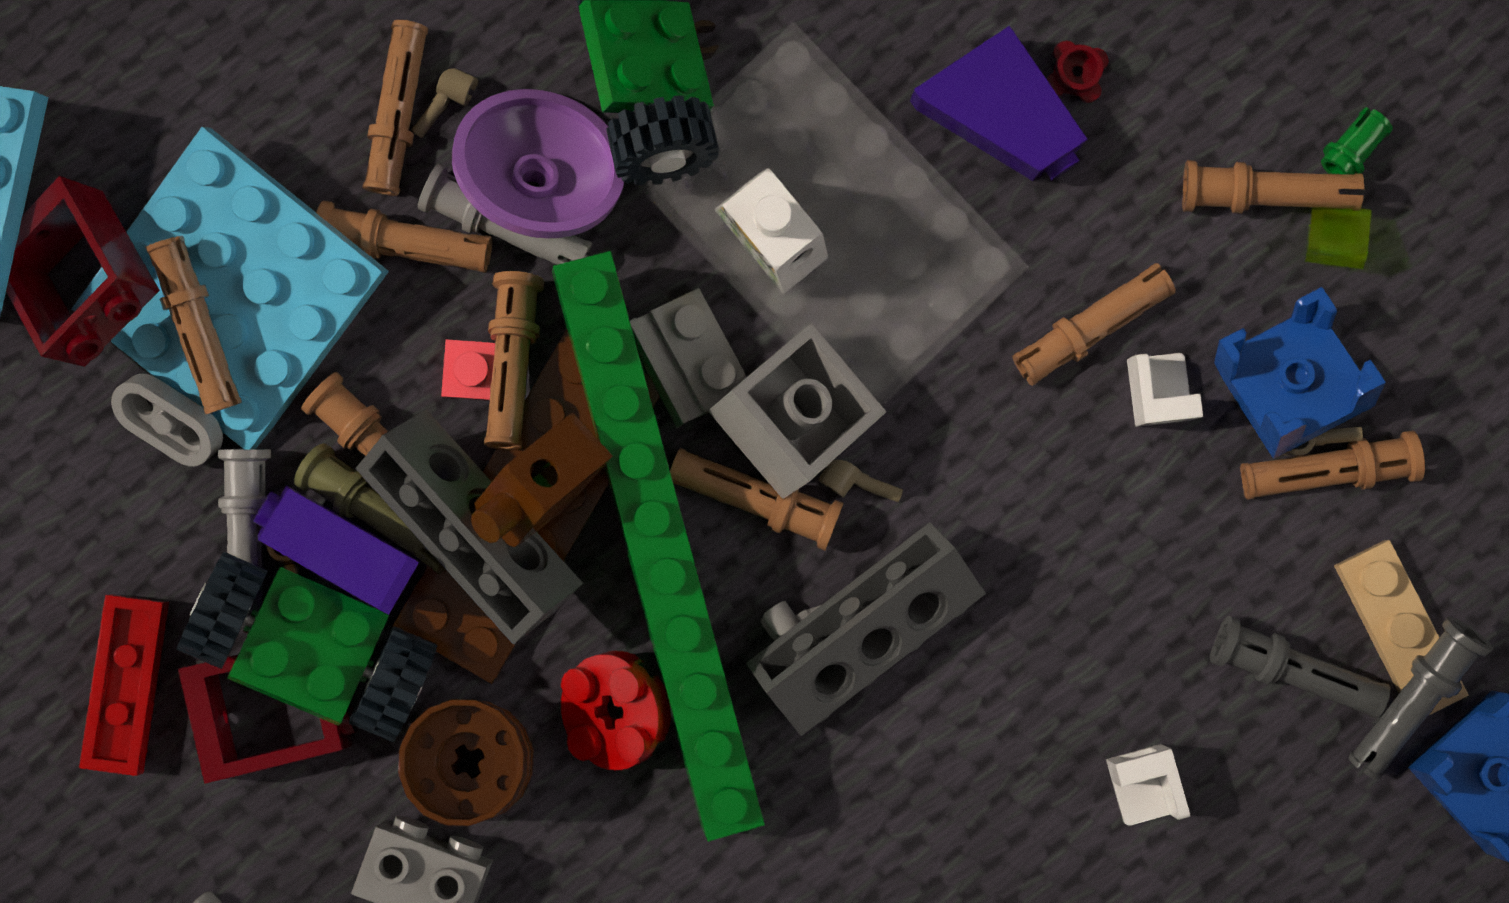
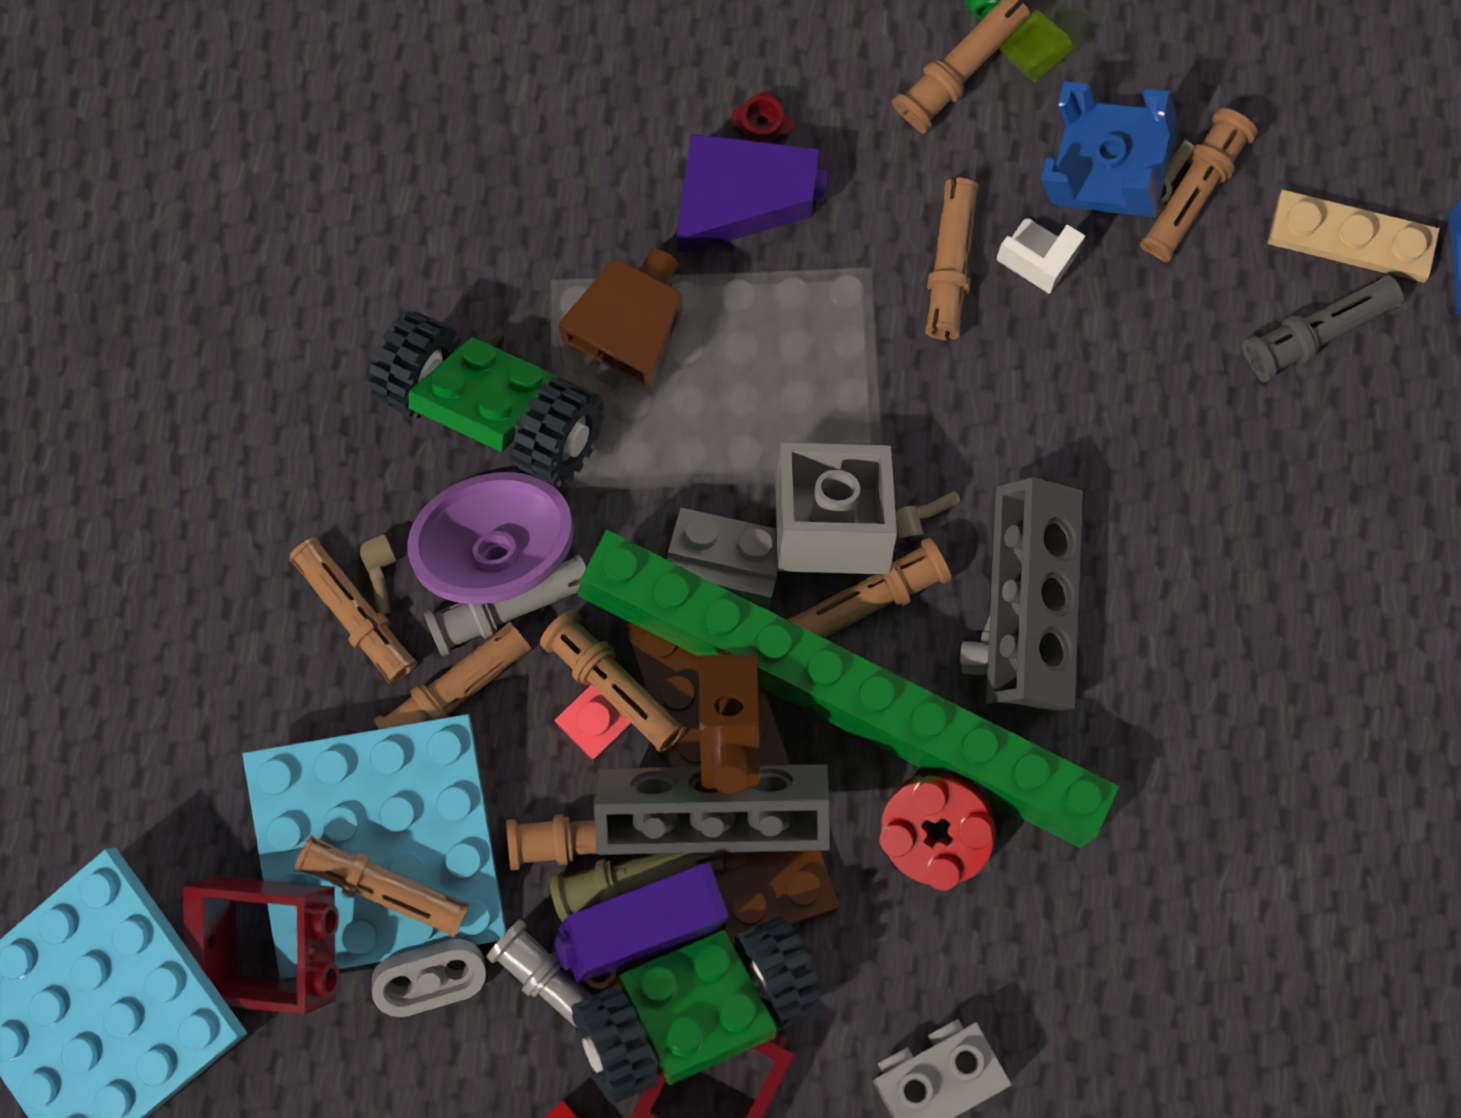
camera: 45 degrees left, 10 degrees down
(434, 750) = (862, 940): reddish brown wheel -> none
(774, 229) = (688, 410): white torso -> none
(810, 111) = (628, 317): none -> reddish brown torso
(1148, 785) = (1320, 498): white panel -> none
(1434, 677) = (1407, 235): dark grey pin -> none

